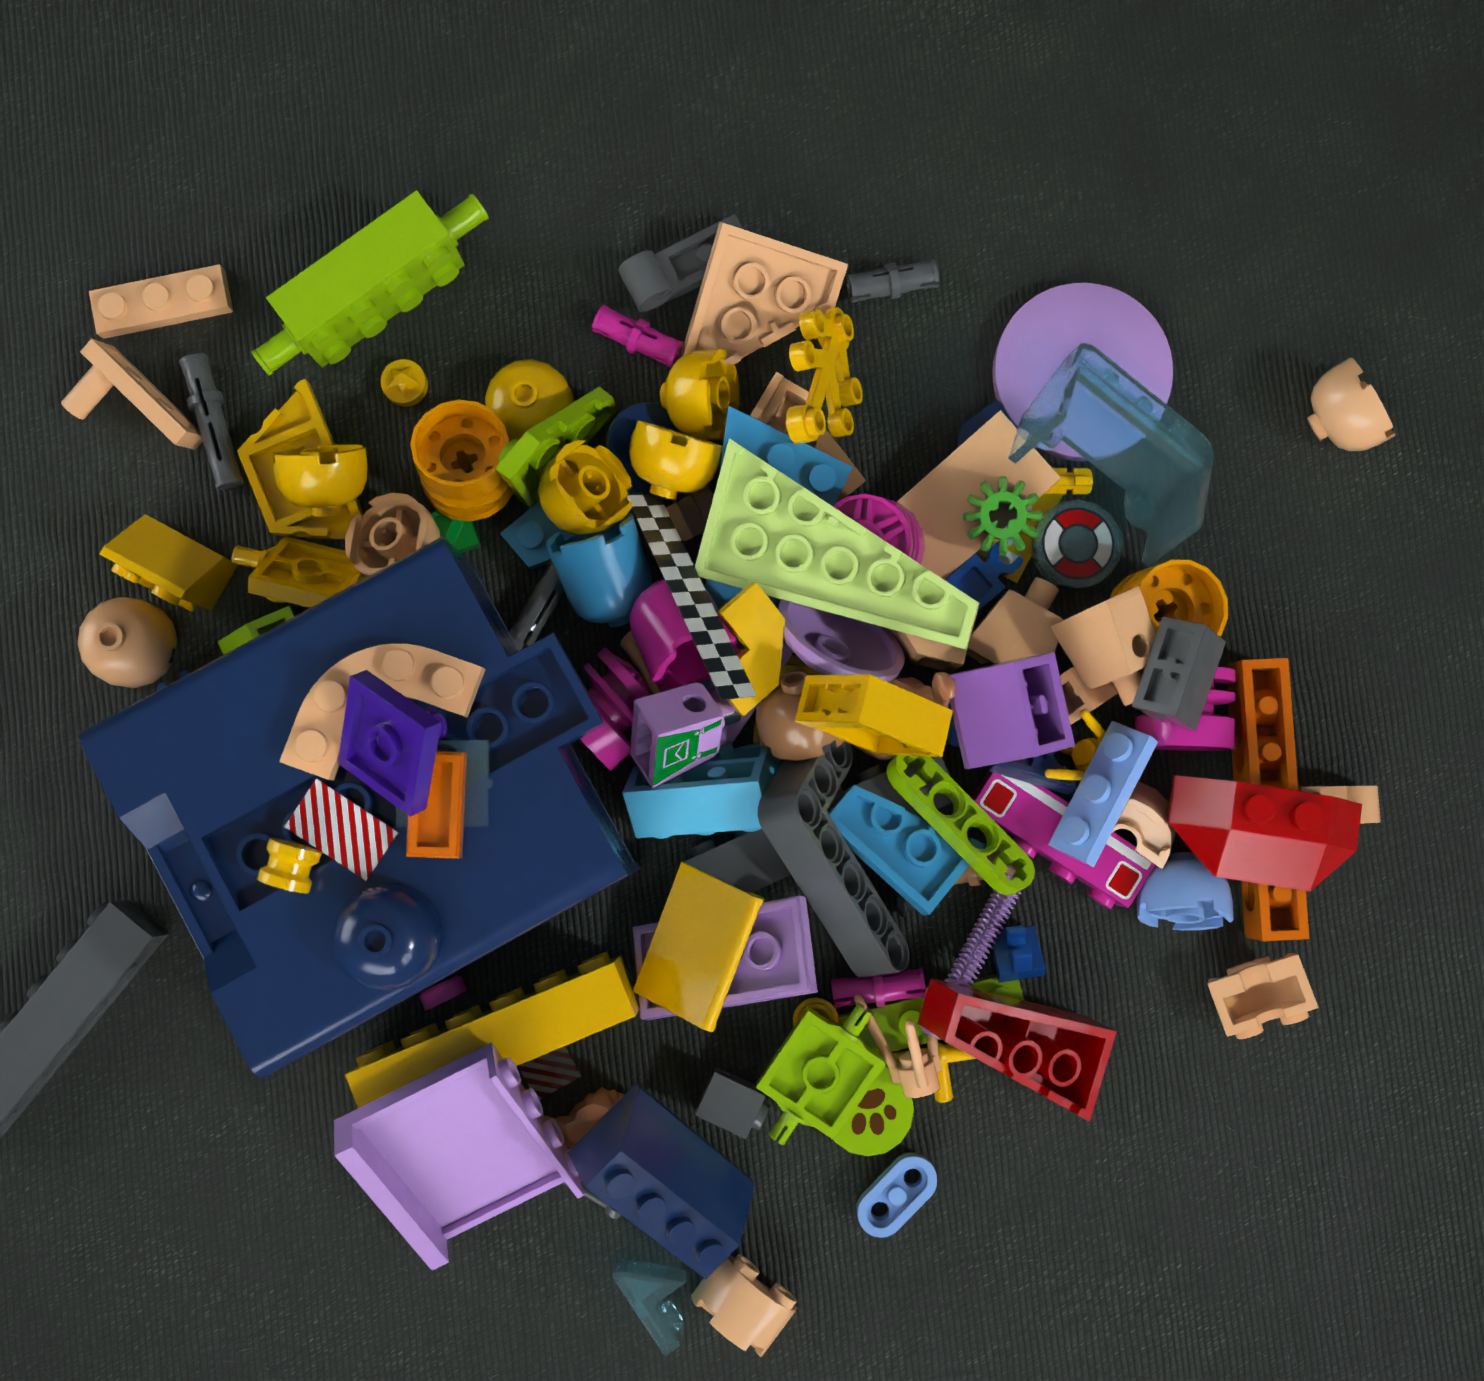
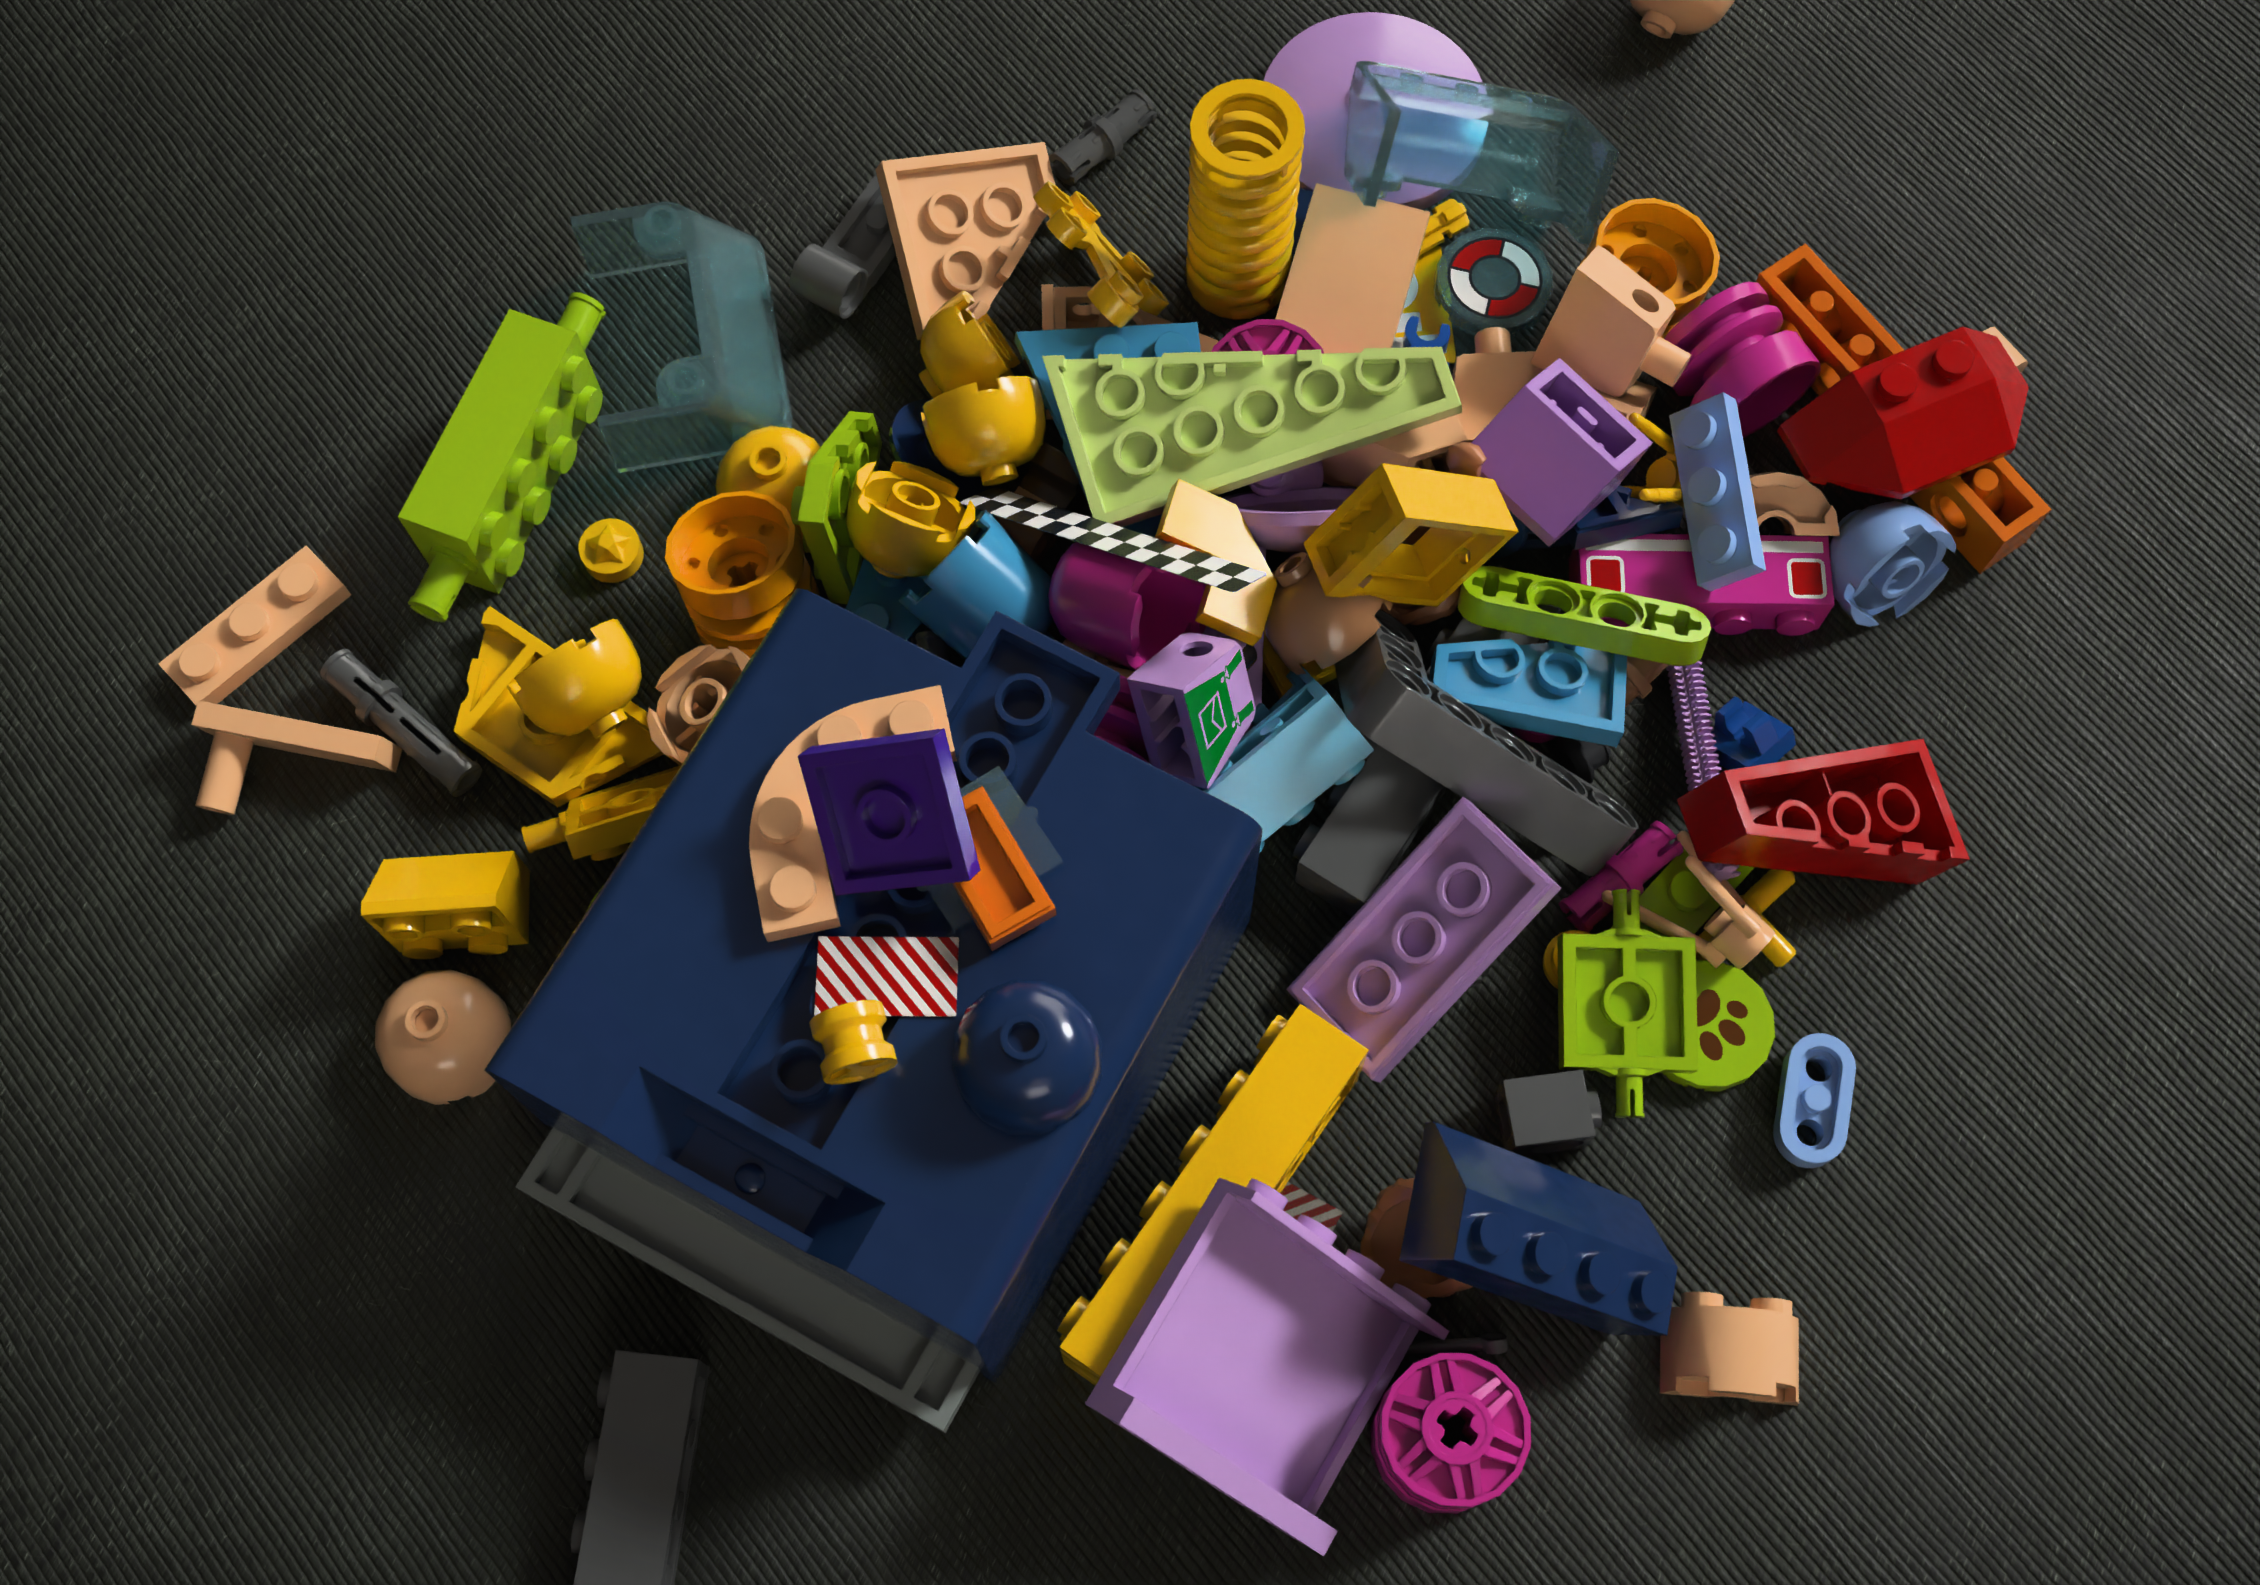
camera: 30 degrees left, 15 degrees down
(442, 992) = (1107, 1207): dark pink tile -> none
(557, 1227) = (1408, 1435): none -> dark pink wheel
(566, 279) = (740, 373): none -> clear light blue windscreen
(637, 336) = (855, 348): dark pink pin -> none
(644, 1288) = (1601, 1412): clear light blue slope -> none
(697, 946) = (1383, 939): yellow piece -> none
(944, 378) = (1242, 196): none -> yellow piece
(1014, 526) = (1397, 259): bright green gear -> none
(1179, 672) = (1706, 303): dark grey hinge -> none
(1260, 993) = (2047, 611): light nougat cylinder -> none

